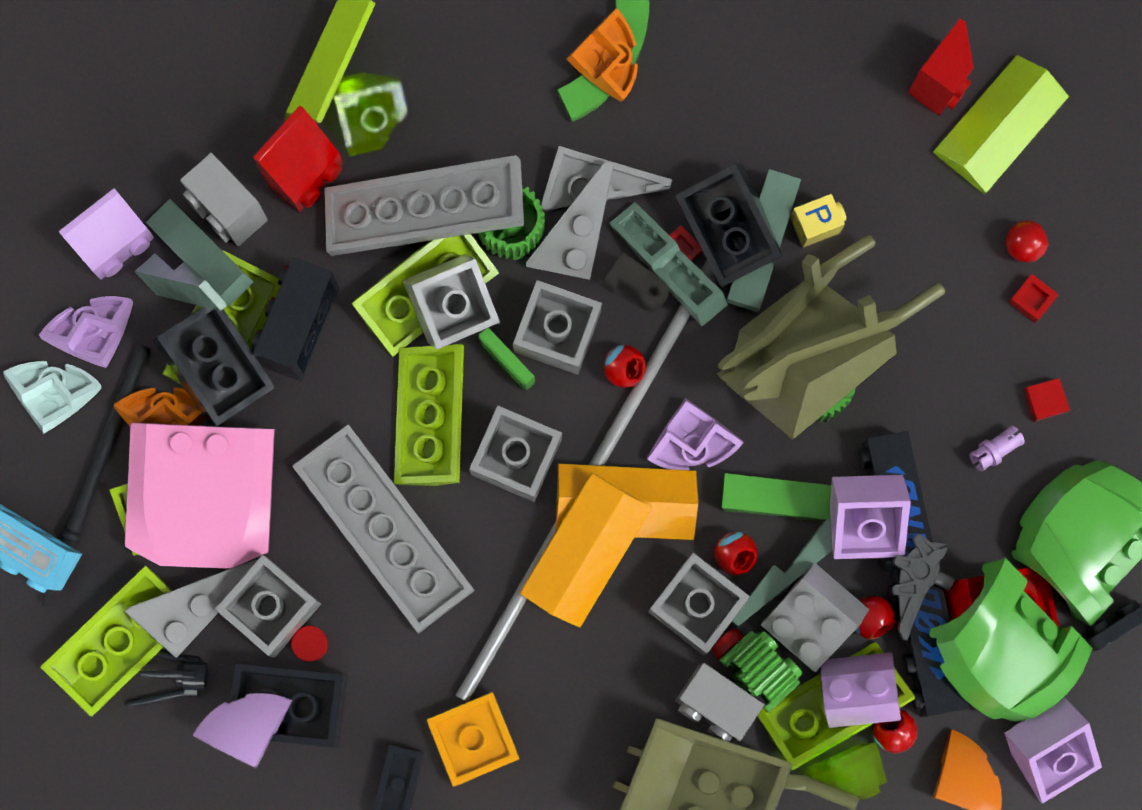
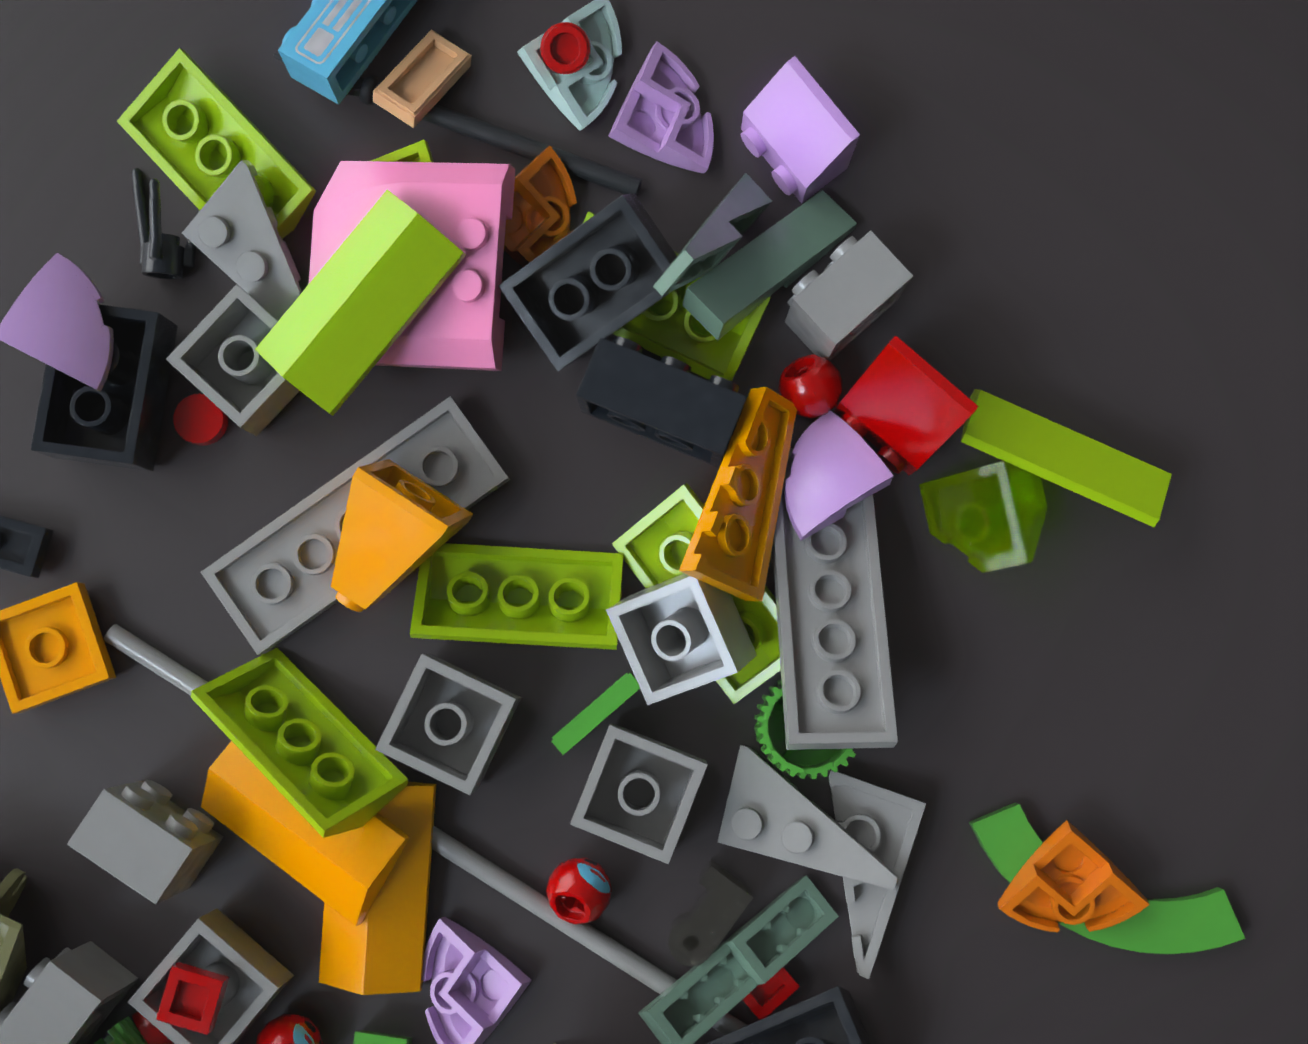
camera: 100 degrees right, 5 degrees up
(43, 395) = (565, 48): none -> red tile
(63, 497) = (422, 78): none -> light nougat tile
(228, 517) = (360, 302): none -> lime slope
(283, 225) = (811, 385): none -> red piece
(343, 208) = (830, 474): none -> lavender brick
(366, 260) = (742, 509): none -> light orange wing
(390, 493) = (389, 532): none -> light orange slope
(529, 549) = (301, 743): none -> lime slope
(601, 650) = (146, 839): none -> light grey brick
(701, 606) = (192, 998): none -> red tile

